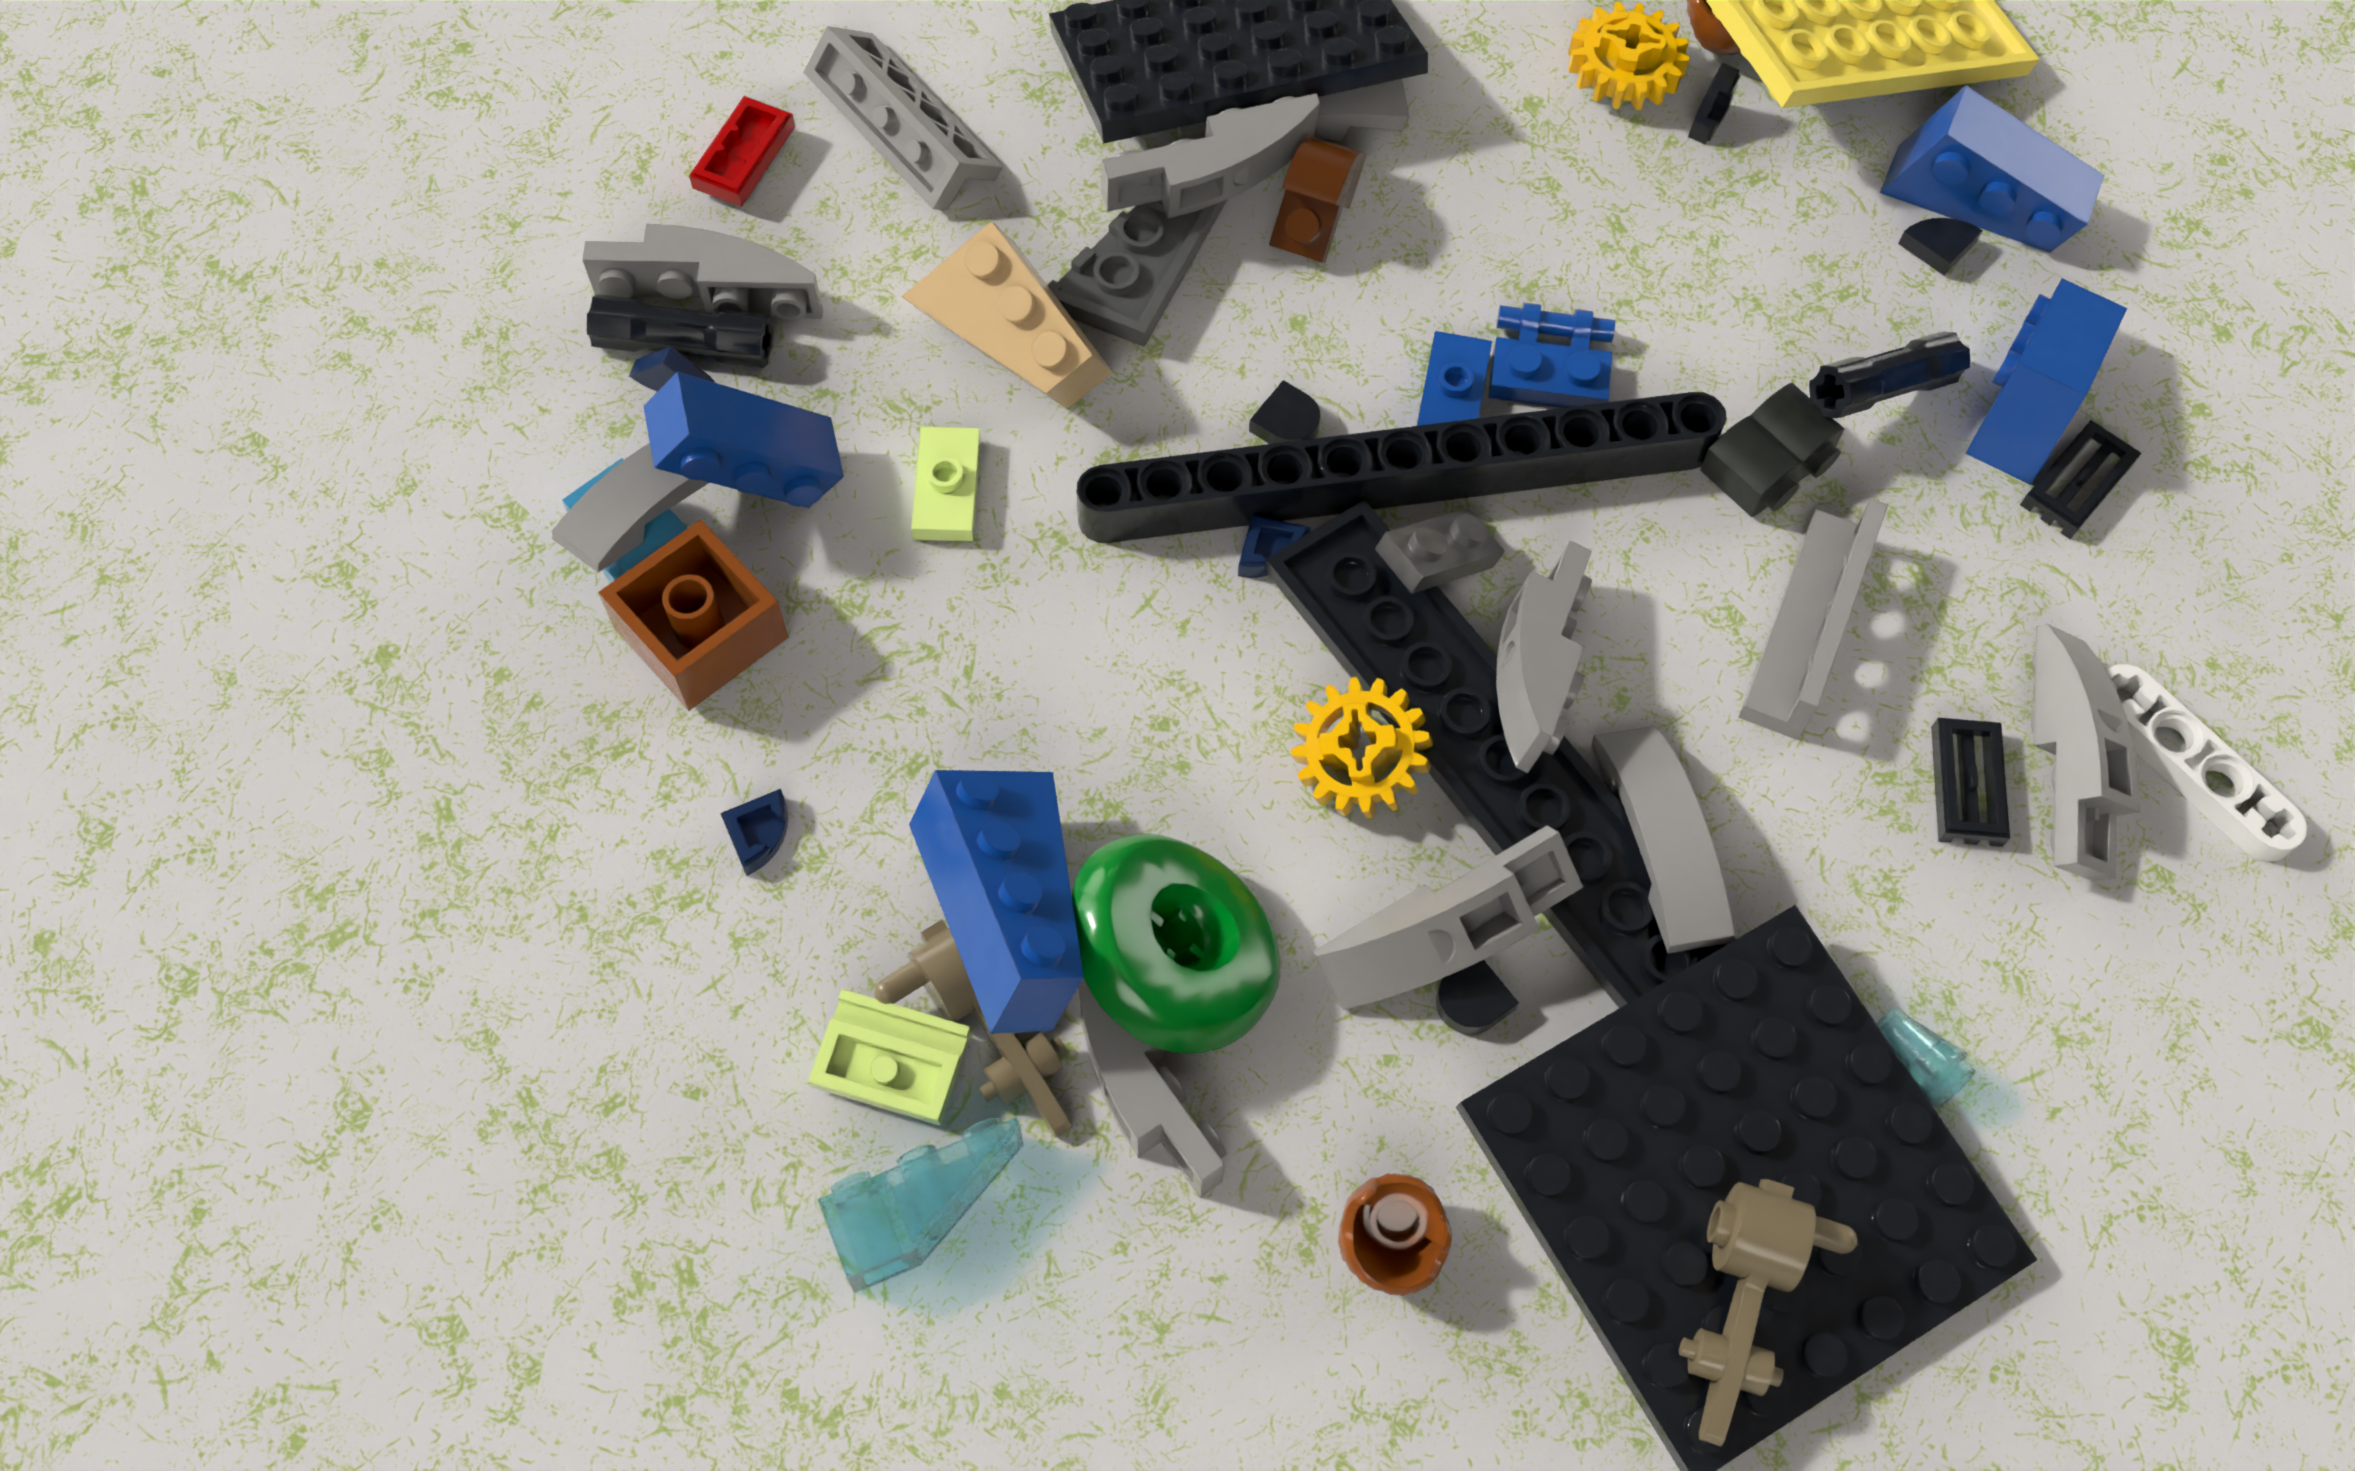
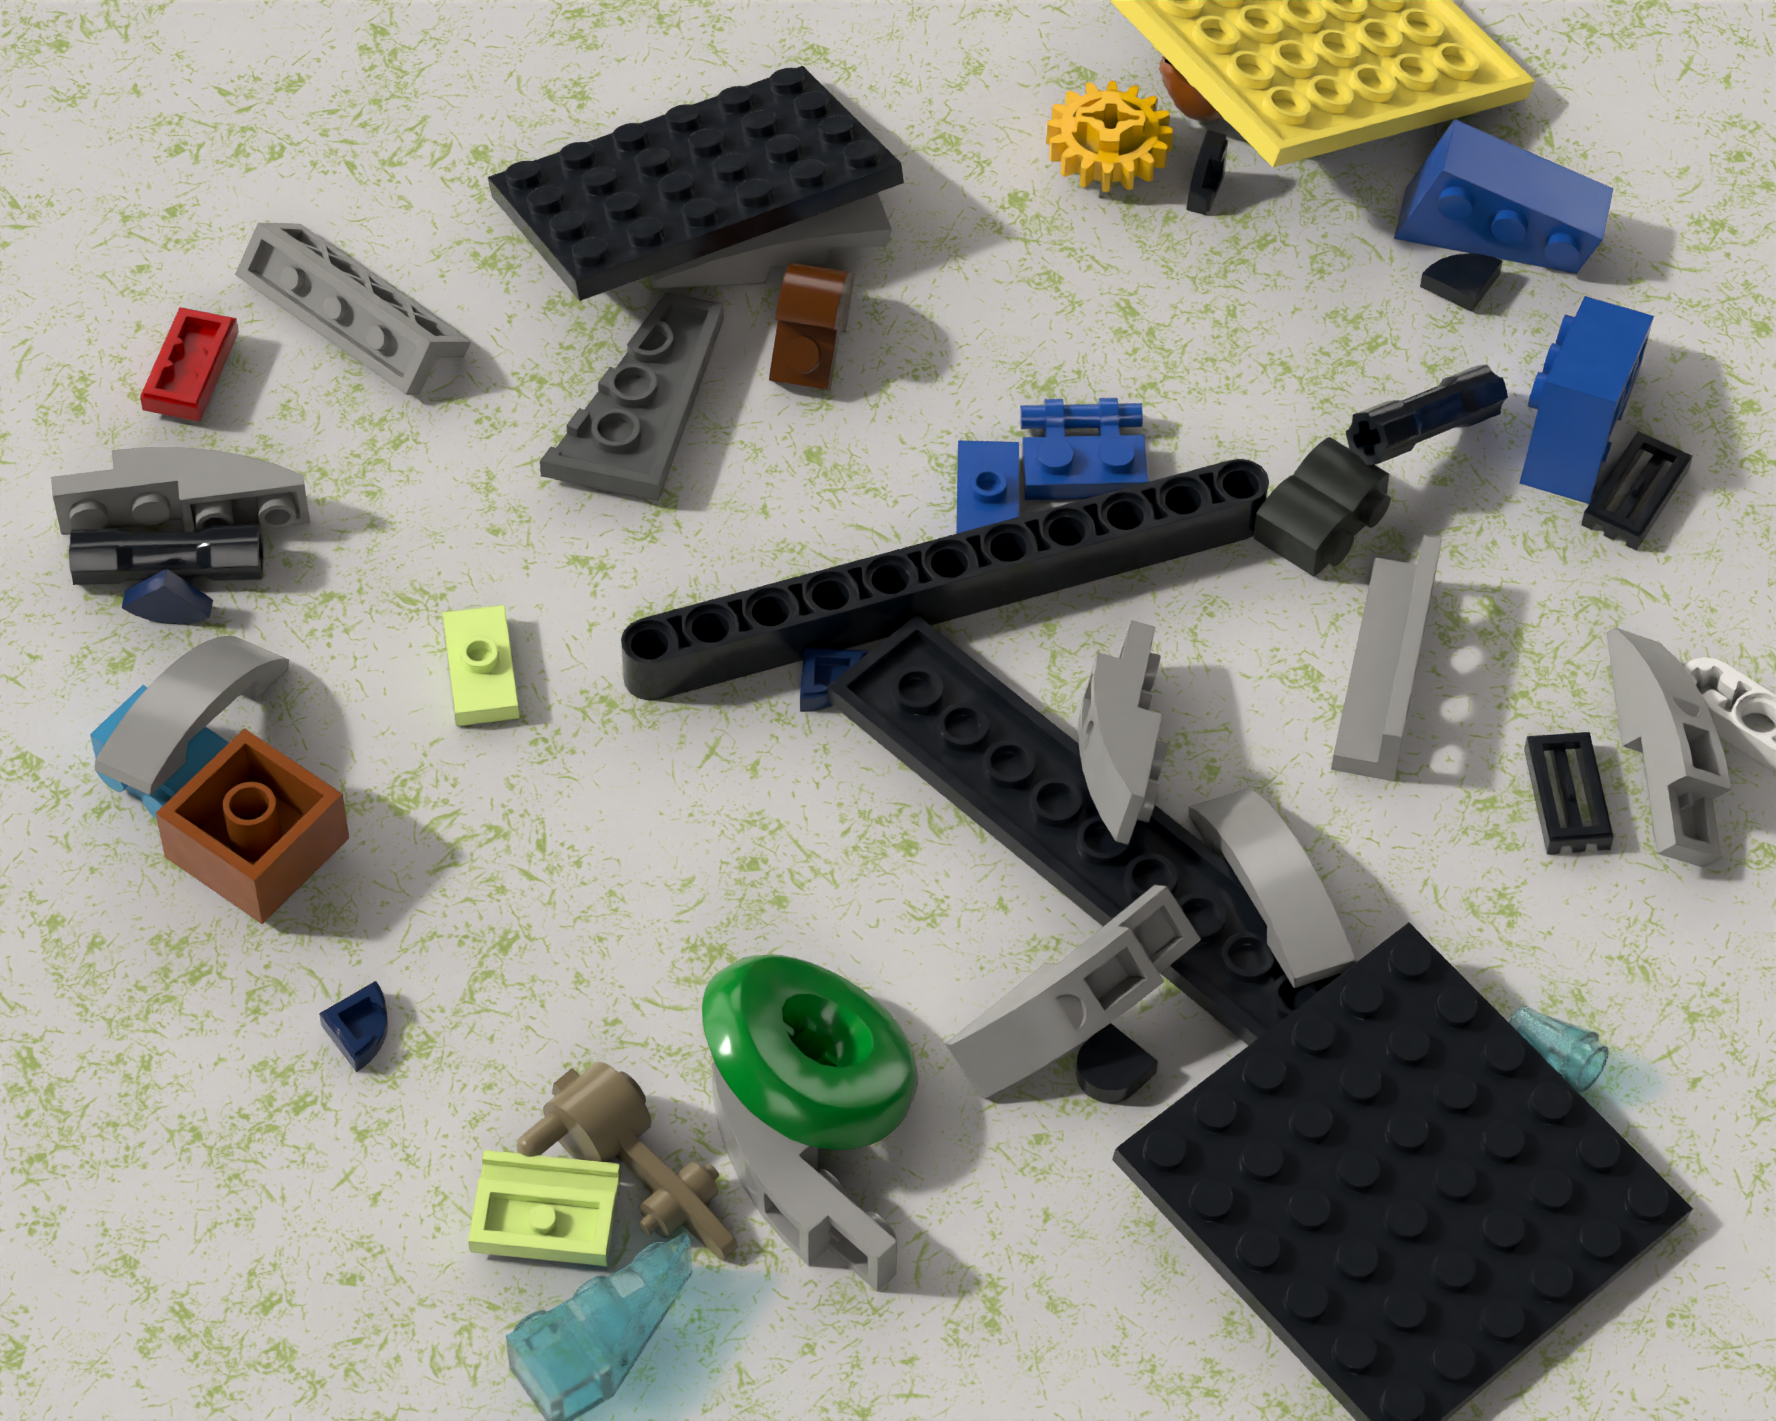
camera: 10 degrees left, 10 degrees down
(742, 441) = (271, 647): blue brick -> none
(1004, 891) = (631, 1022): blue wedge -> none
(1009, 313) = (514, 487): tan wedge -> none
(1234, 156) = (717, 295): light grey slope -> none
(1286, 416) = (819, 546): black tile -> none
(1387, 747) = (935, 853): yellow gear -> none
(1395, 1234) = (1073, 1278): dark orange hair -> none
(1439, 550) = (1002, 651): flat silver plate -> none
(1763, 1242) = (1422, 1217): dark tan piece -> none

